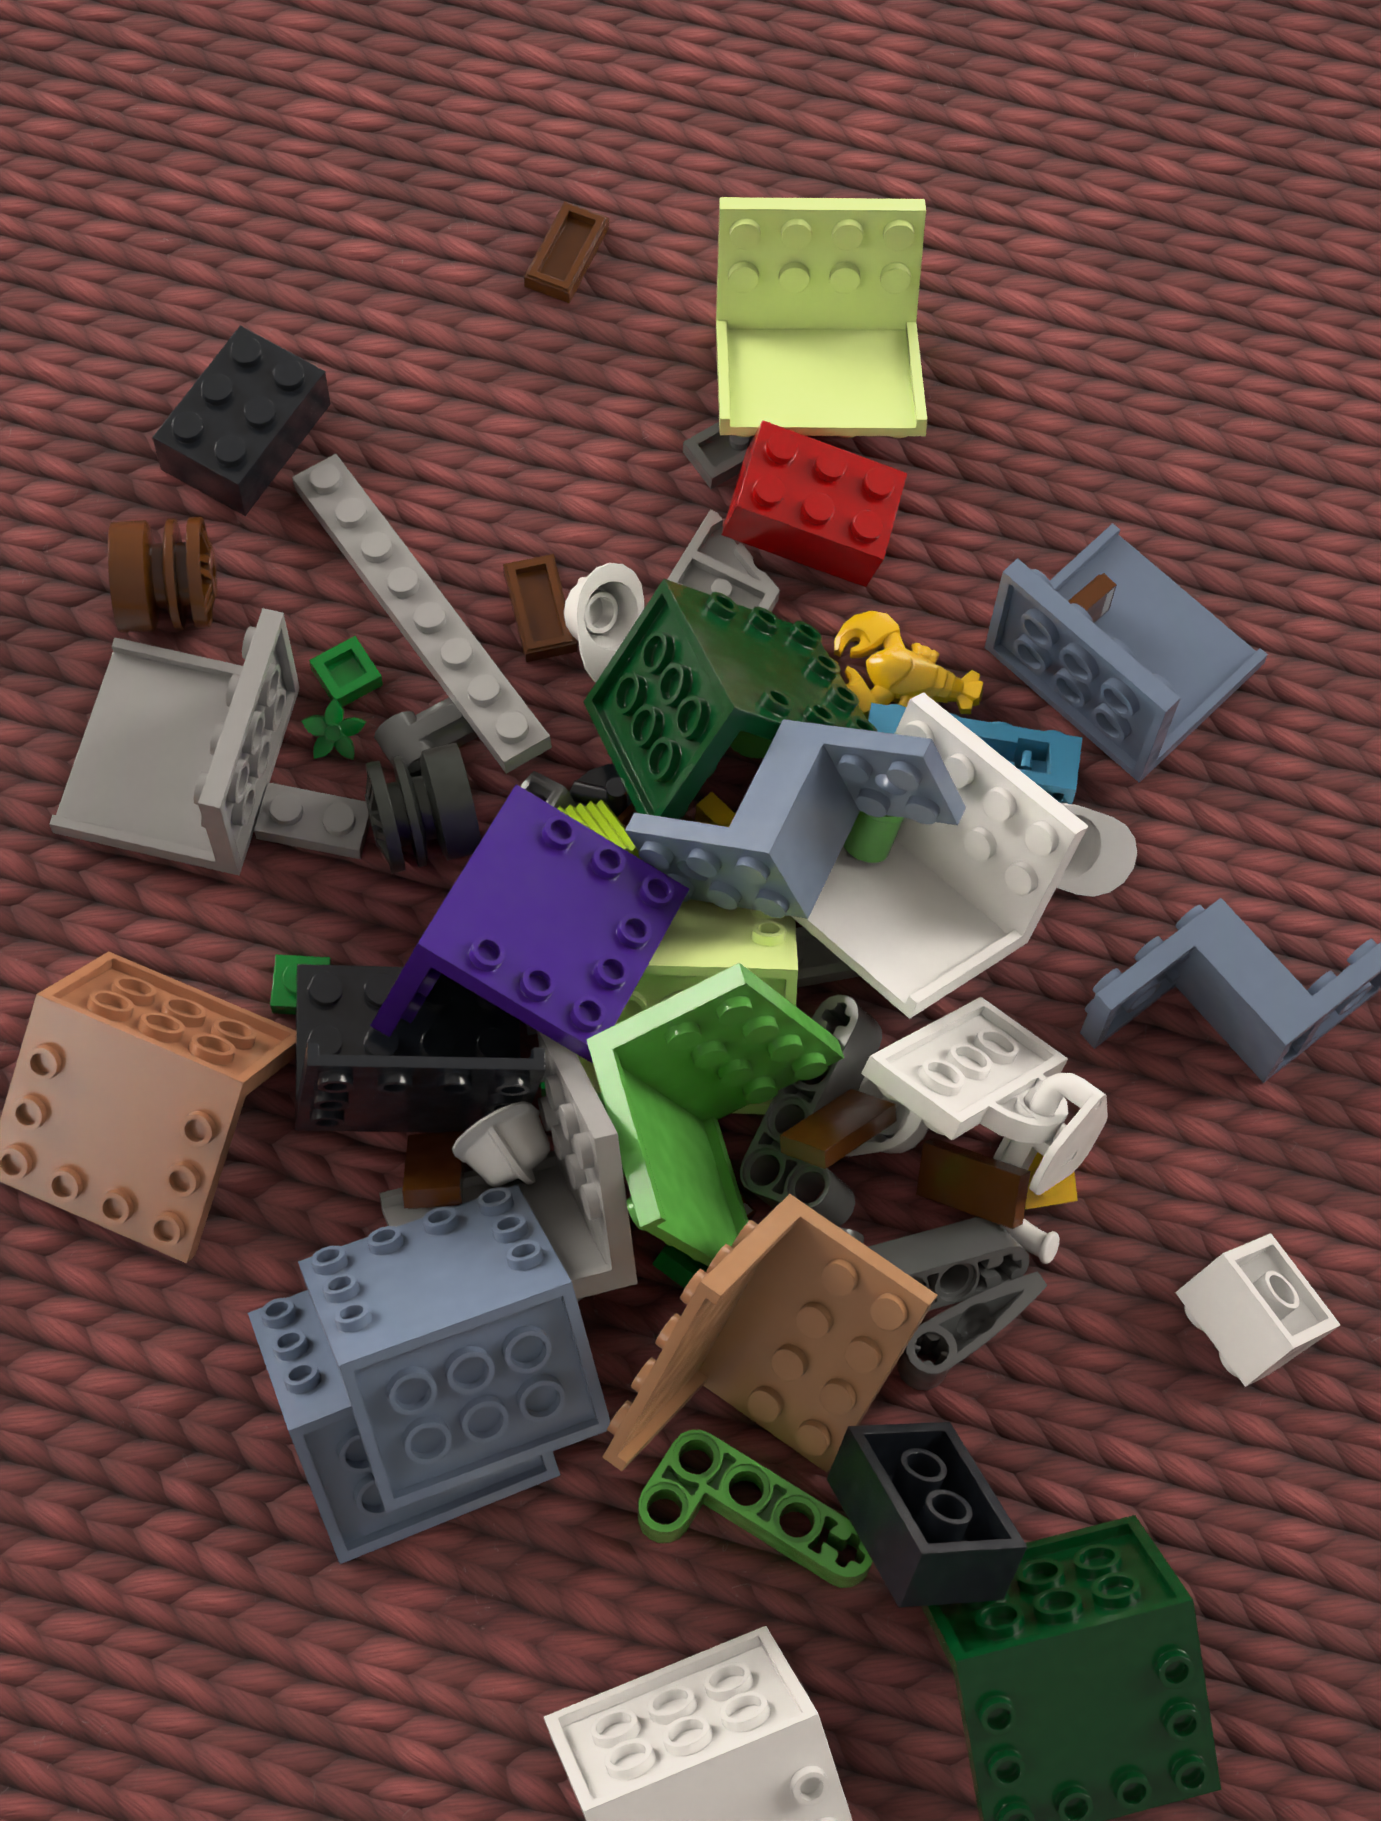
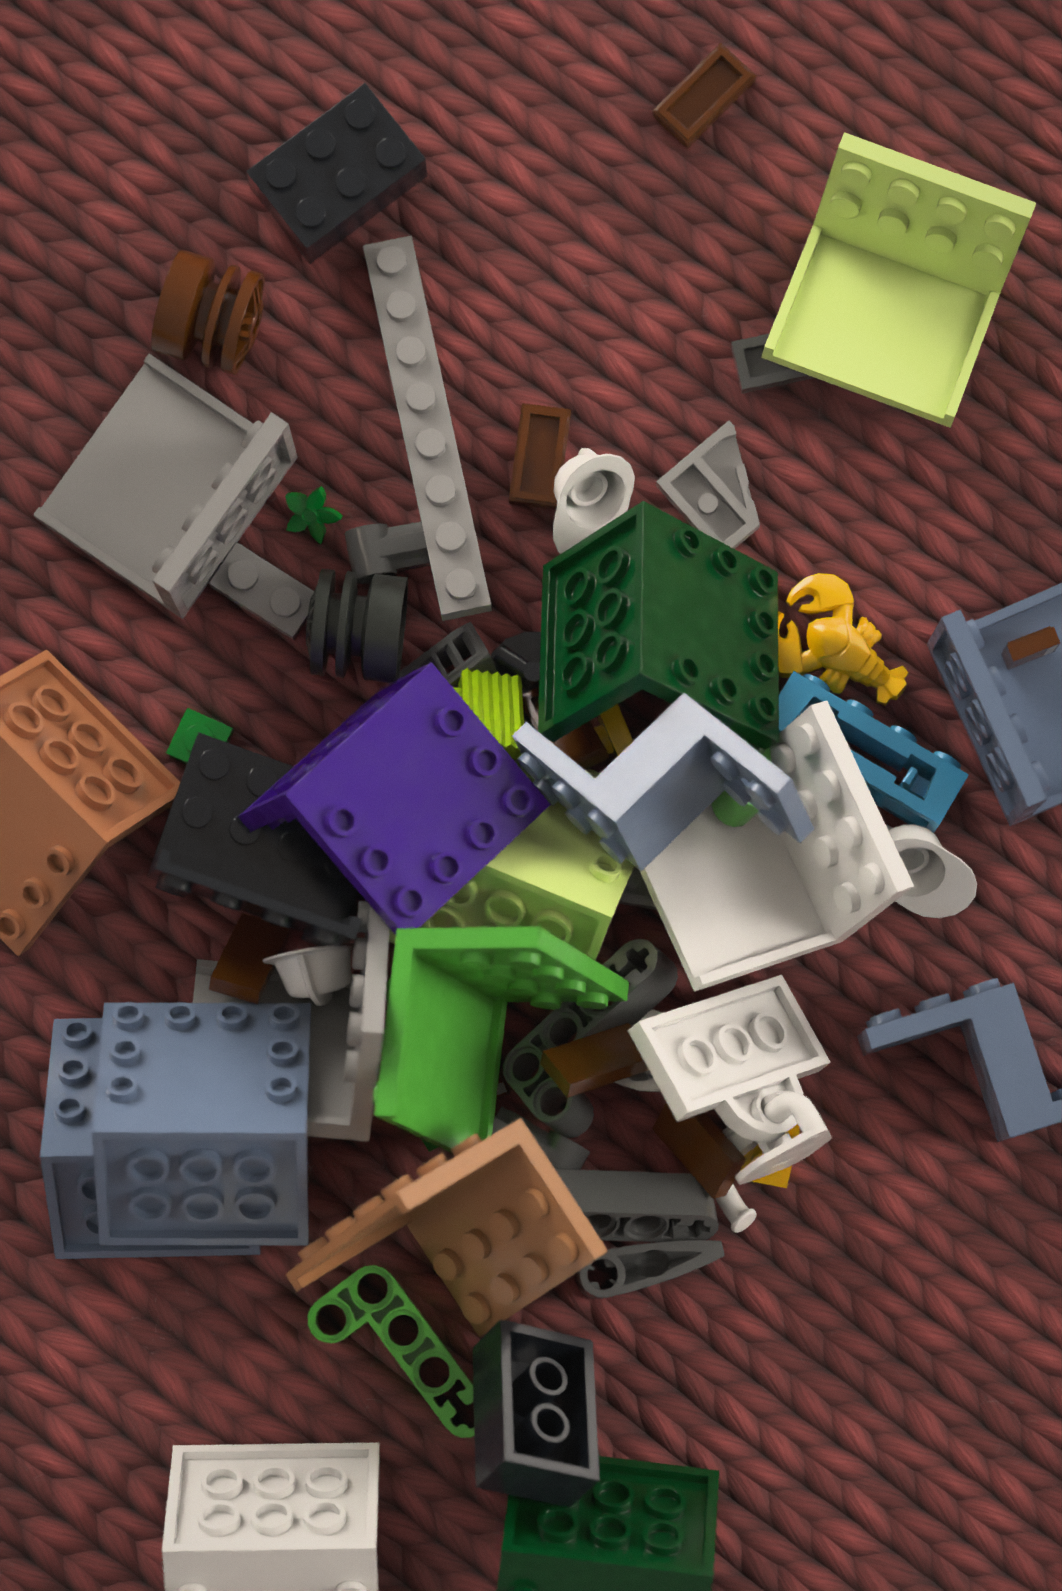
camera: 25 degrees right, 15 degrees up
(346, 672) = (342, 460): green plate -> none
(814, 504) = (823, 454): red brick -> none
(1256, 1309) = (898, 1341): white slope -> none

